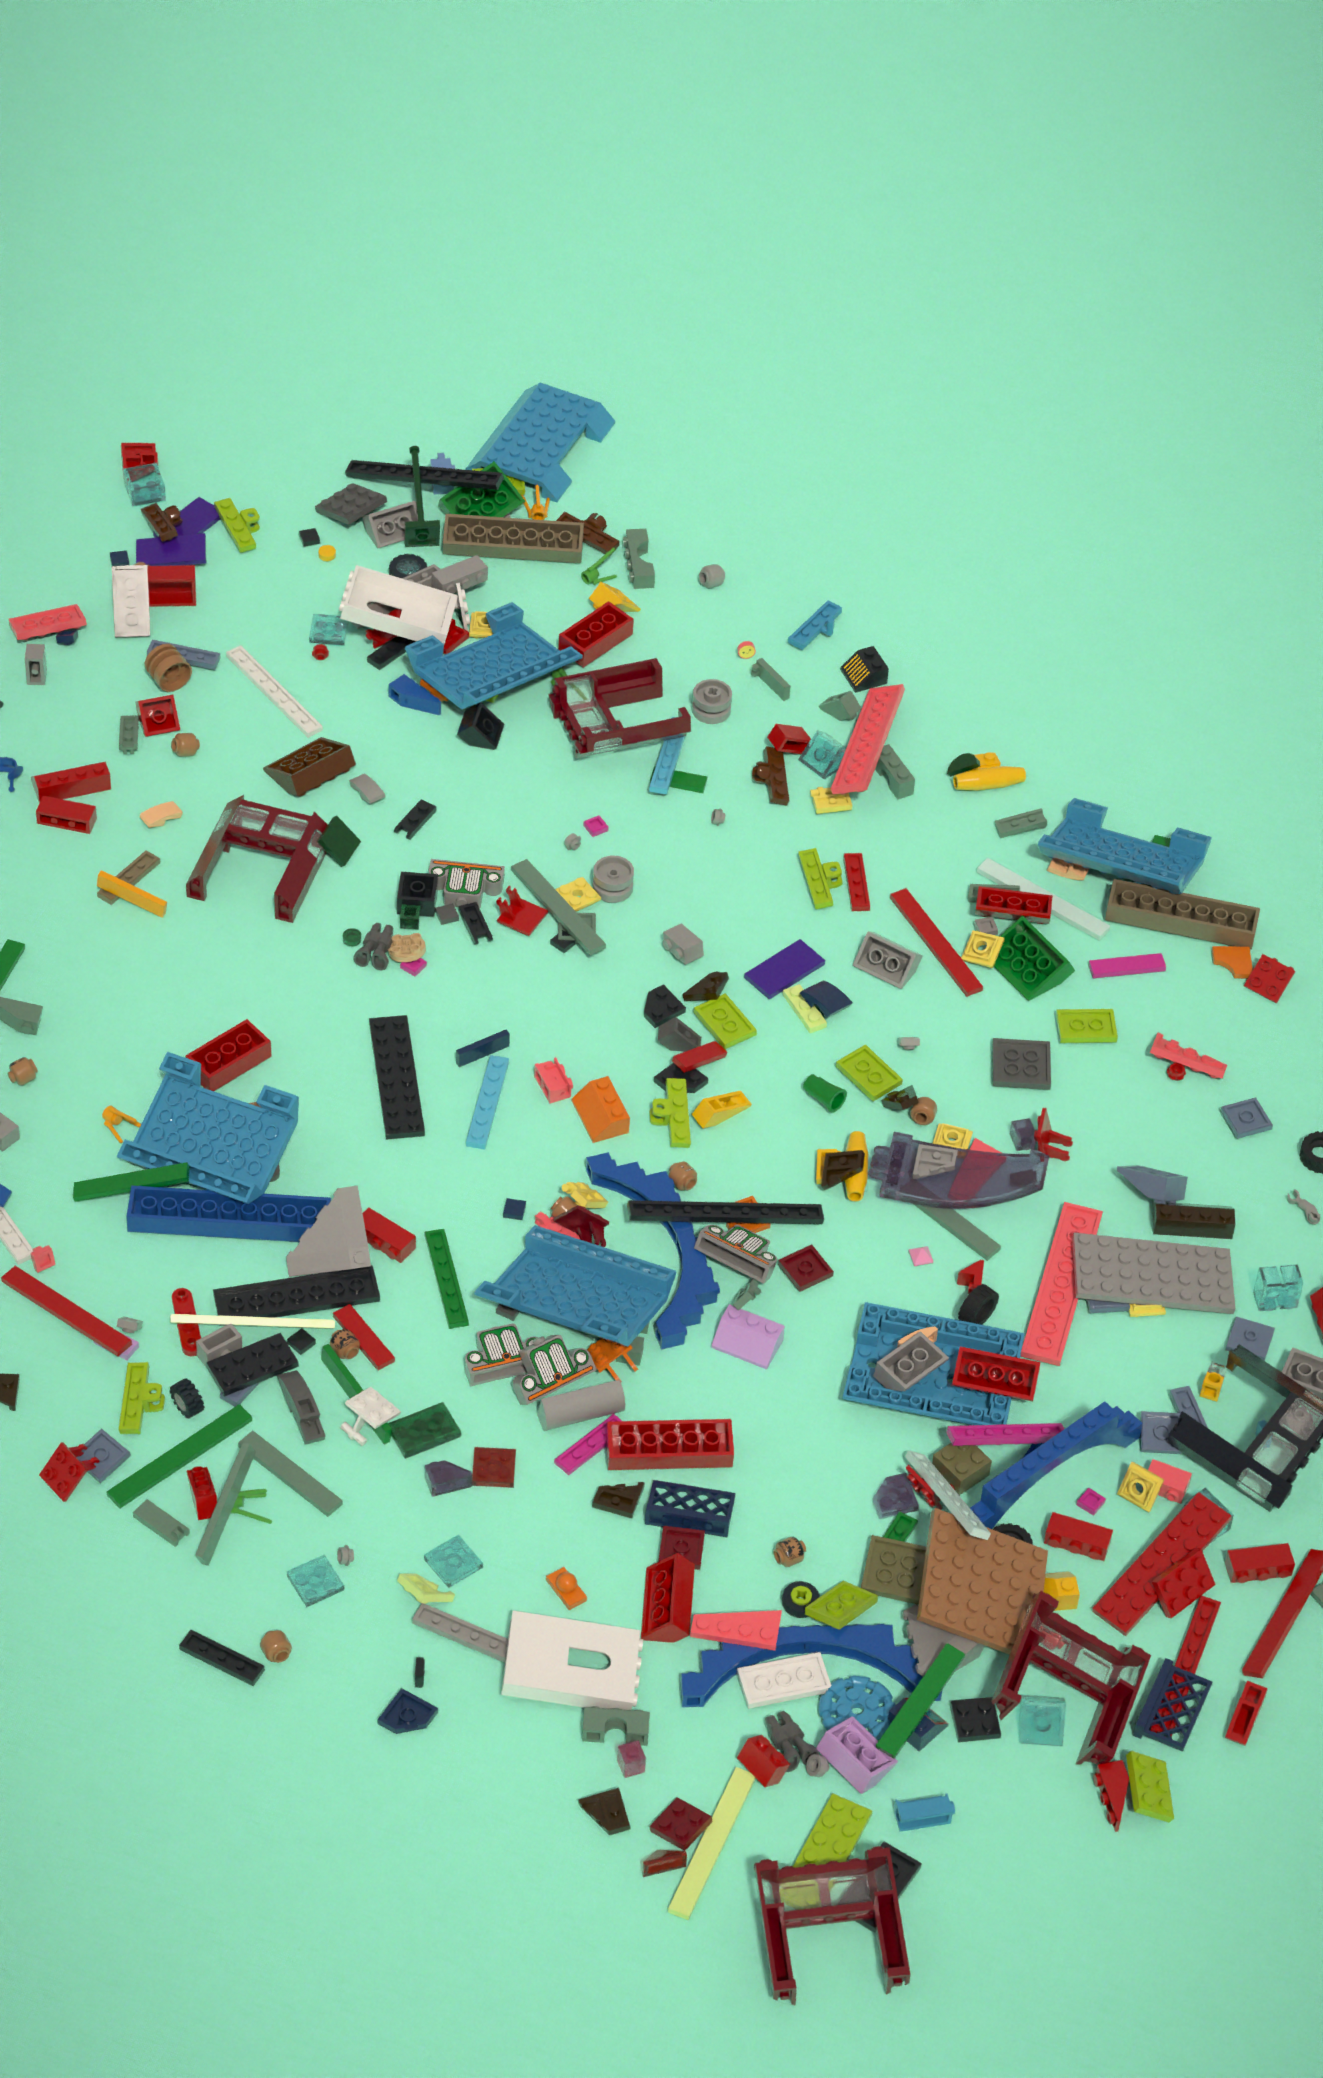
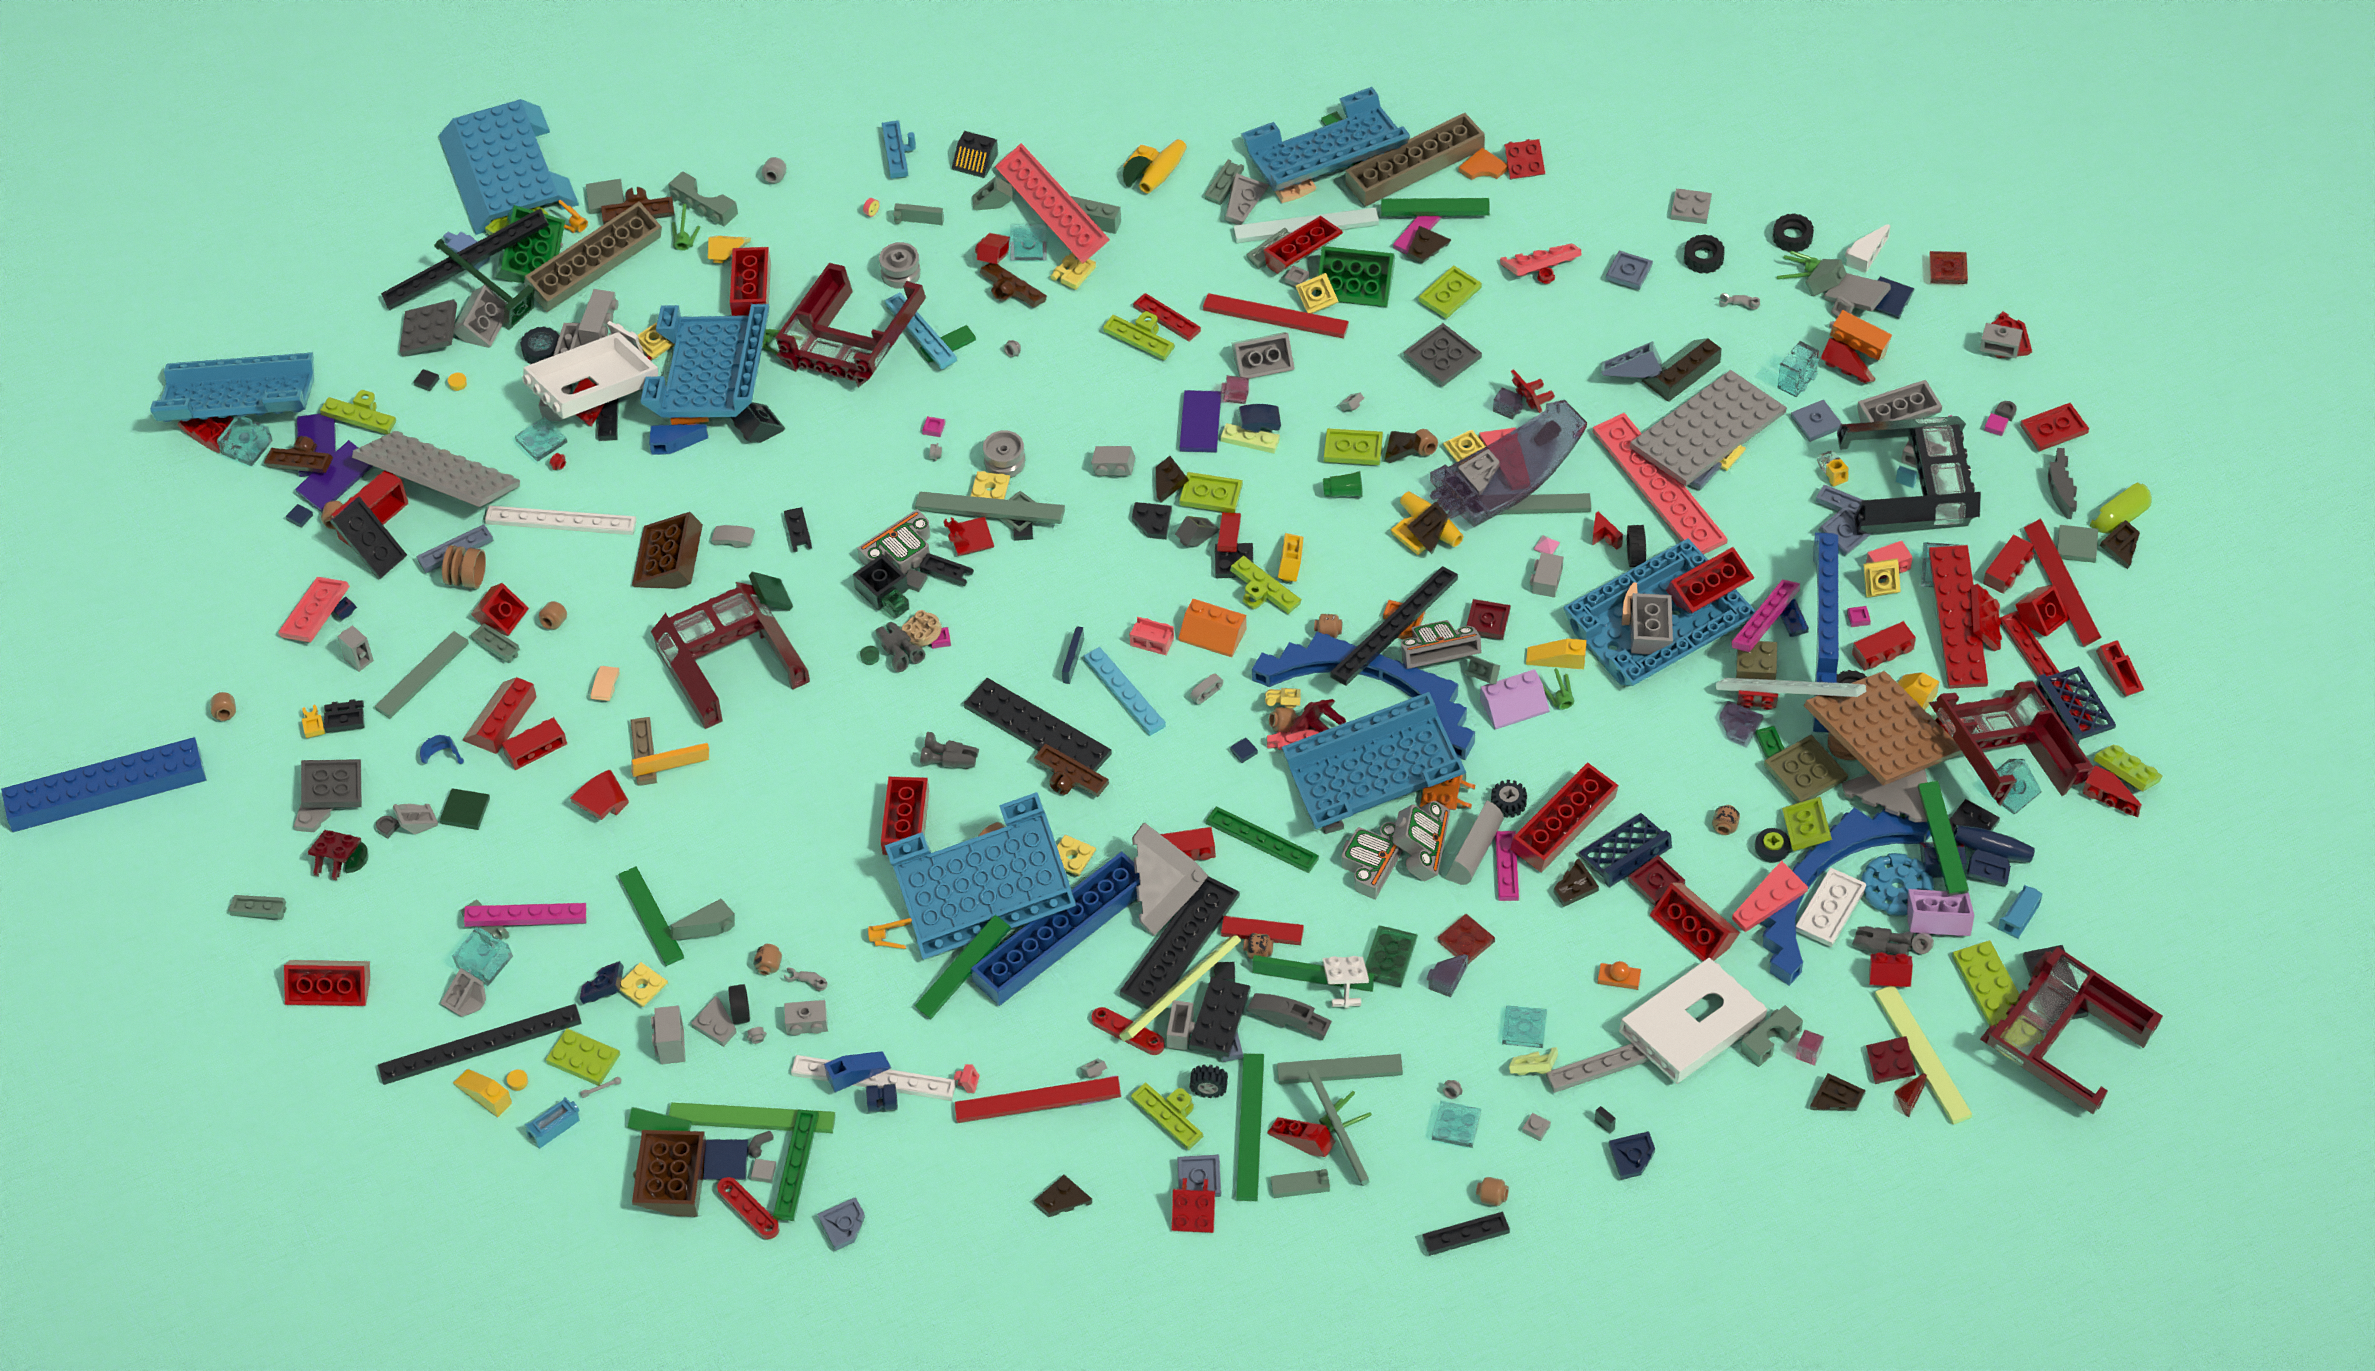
camera: 40 degrees left, 5 degrees up
(36, 1108) = (811, 977): none -> light grey arm
(59, 716) = (421, 674): none -> sand green tile
(62, 879) = (601, 796): none -> red slope
(180, 447) = (235, 387): none -> dark azure slope
(232, 593) = (436, 468): none -> light grey plate
(309, 1169) = (1071, 846): none -> light yellow piece
(316, 1044) = (954, 753): none -> dark grey piece
(368, 1634) = (1536, 1127): none -> light grey plate
(373, 1121) = (1069, 772): none -> reddish brown plate
(542, 1146) = (1206, 688): none -> light grey beam
(580, 506) = (603, 194): none -> sand green tile
(647, 1405) = (1517, 798): none -> black wheel
(786, 1366) = (1563, 697): none -> bright green plant
(824, 1335) = (1560, 653): none -> yellow slope
(835, 966) = (1235, 389): none -> clear pink brick
(890, 1274) = (1547, 574): none -> light grey brick
(956, 1749) = (1992, 853): none -> dark blue plate
(1017, 844) = (1243, 198): none -> light grey wing
(1112, 979) = (1426, 244): none -> dark brown wing
(1154, 958) = (1435, 207): none -> green tile
(1239, 1618) = (2043, 610): none -> red slope

